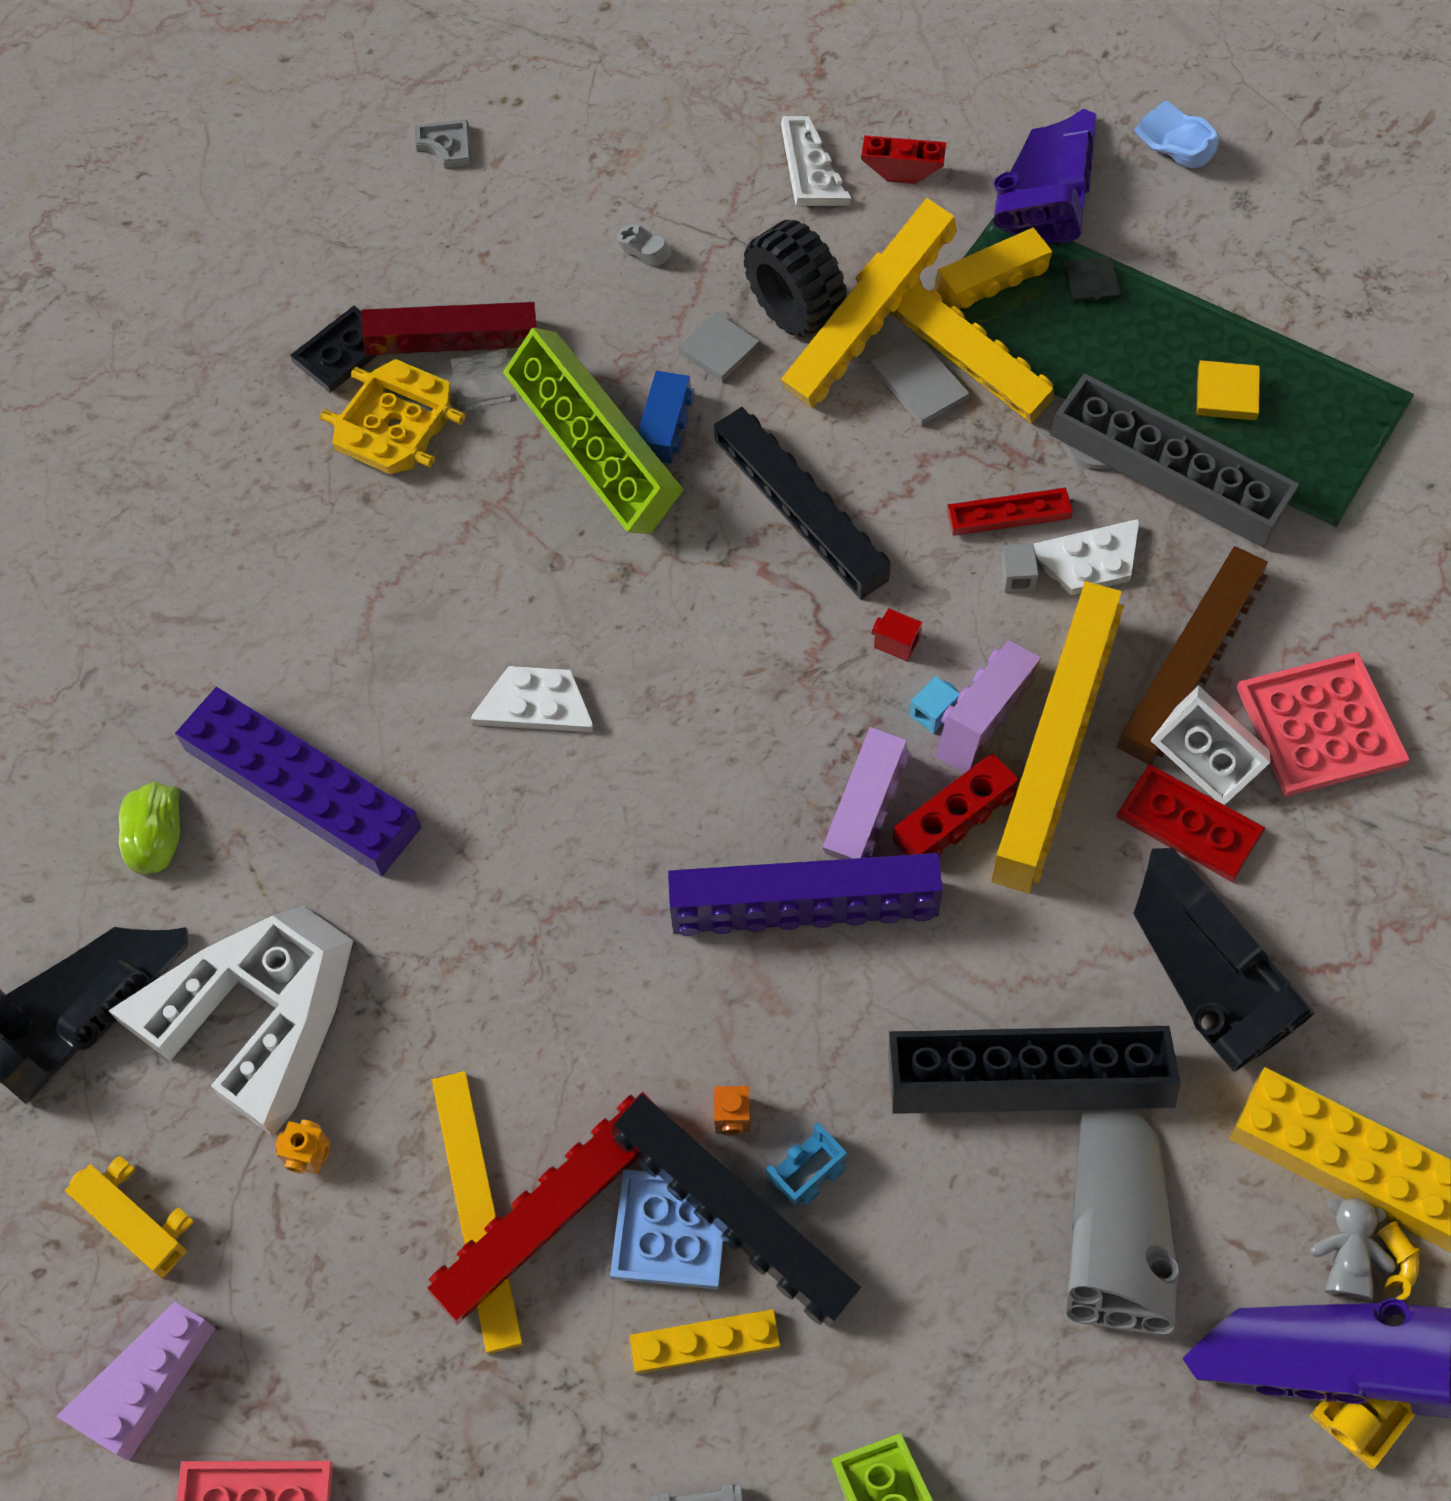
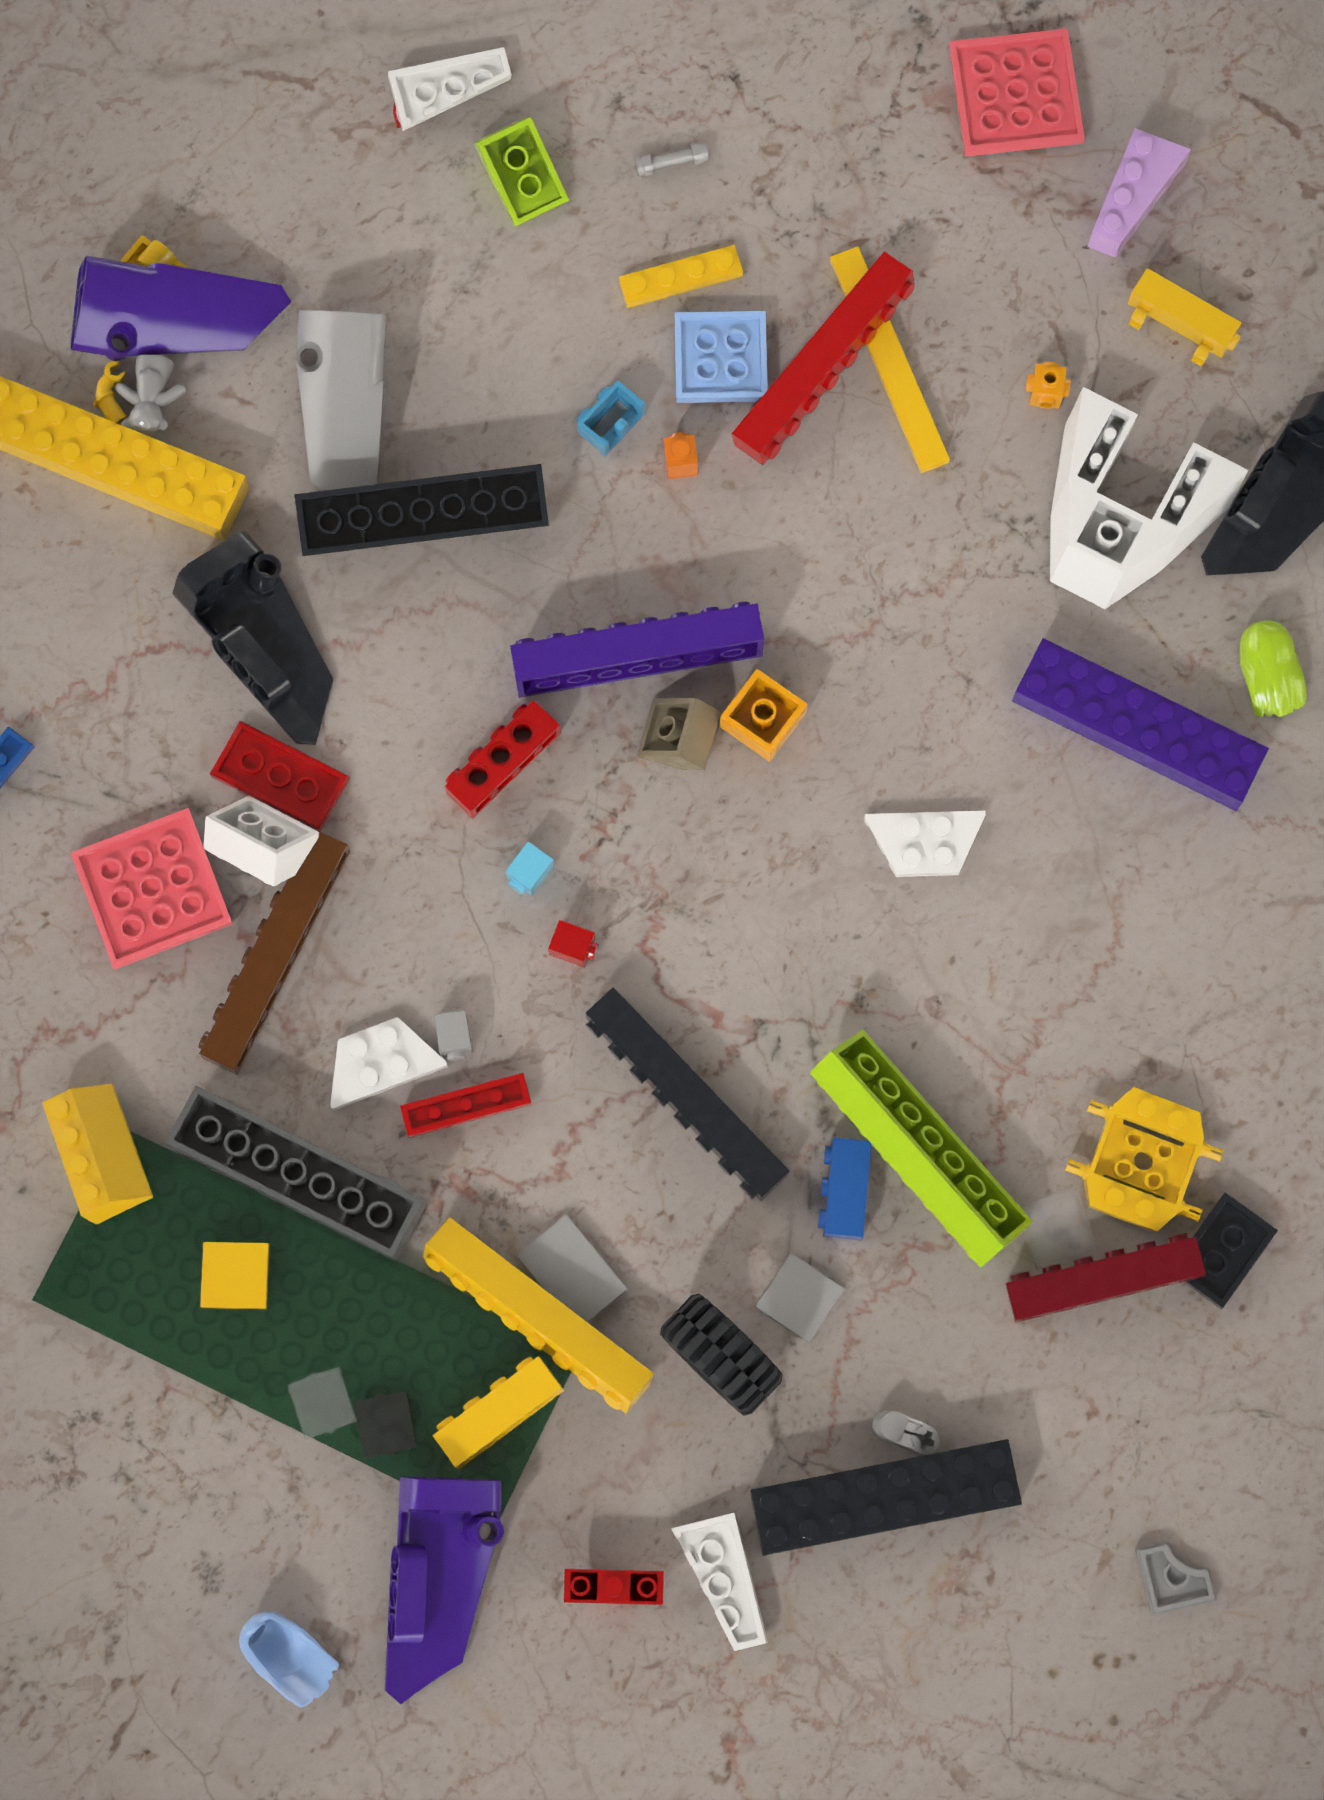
camera: 170 degrees right, 15 degrees up
(670, 200) = (885, 1497): none -> black brick
(679, 820) = (763, 715): none -> light orange brick
(735, 1210) = (669, 365): black brick -> none
(769, 817) = (679, 733): none -> dark tan slope
(867, 796) = (586, 759): lavender wedge -> none
(870, 303) = (632, 1331): yellow brick -> none
(985, 705) = (476, 871): lavender wedge -> none
(1058, 739) = (407, 837): yellow brick -> none
(1147, 298) = (322, 1403): none -> clear piece
(1364, 489) = (97, 1151): none -> yellow slope

